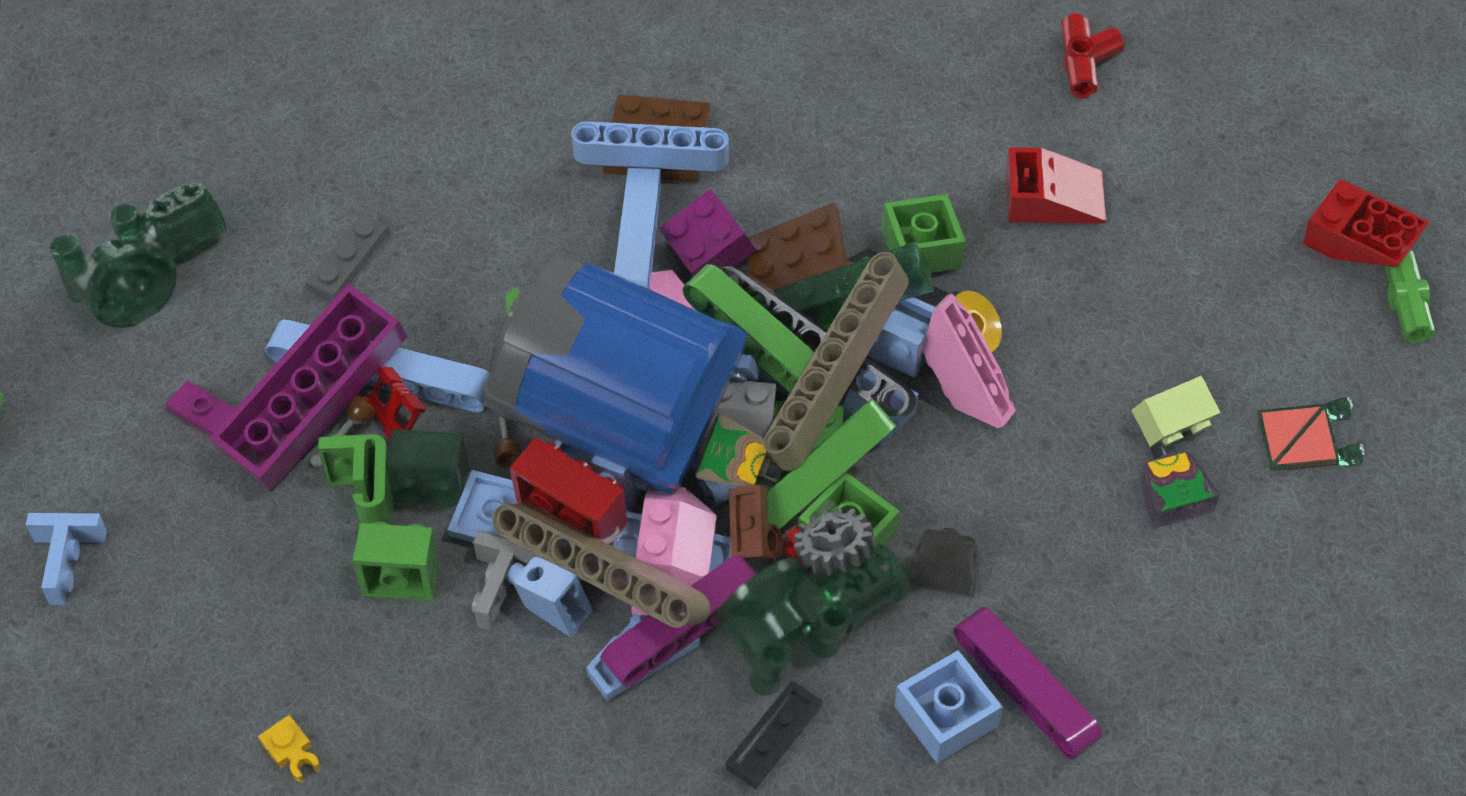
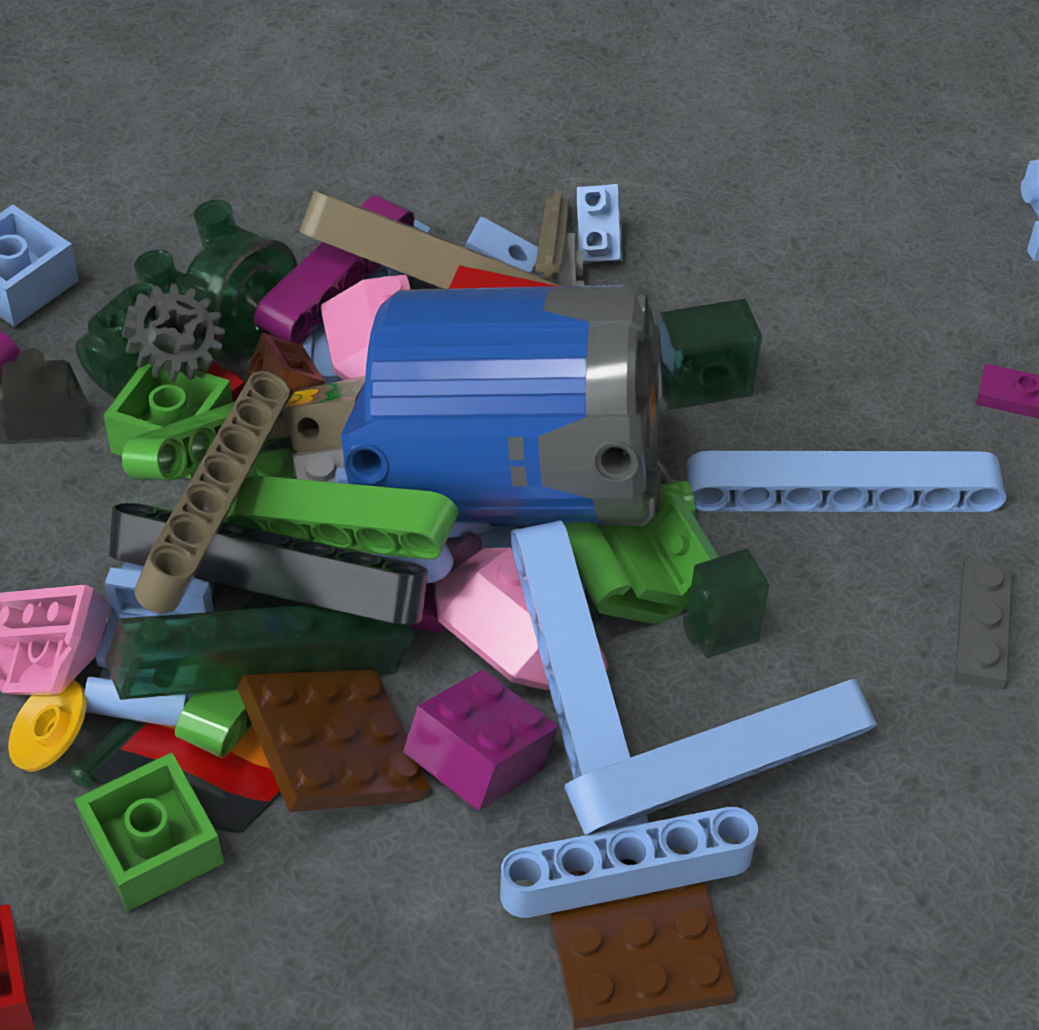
camera: 160 degrees right, 5 degrees down
(288, 744) = (704, 123): yellow plate -> none
(309, 387) = (897, 394): magenta brick -> none
(358, 413) = (831, 409): reddish brown hinge -> none
(361, 463) = (793, 340): bright green piece -> none
(396, 561) = (686, 255): bright green brick -> none
(400, 395) = (786, 424): red piece -> none
(447, 624) = (600, 223): none -> light blue hips
(494, 602) = (552, 235): none -> dark tan axle
(511, 270) = (726, 603): none -> clear green brick
(554, 197) = (718, 756): none -> light blue beam
(773, 734) = (185, 240): black plate -> none

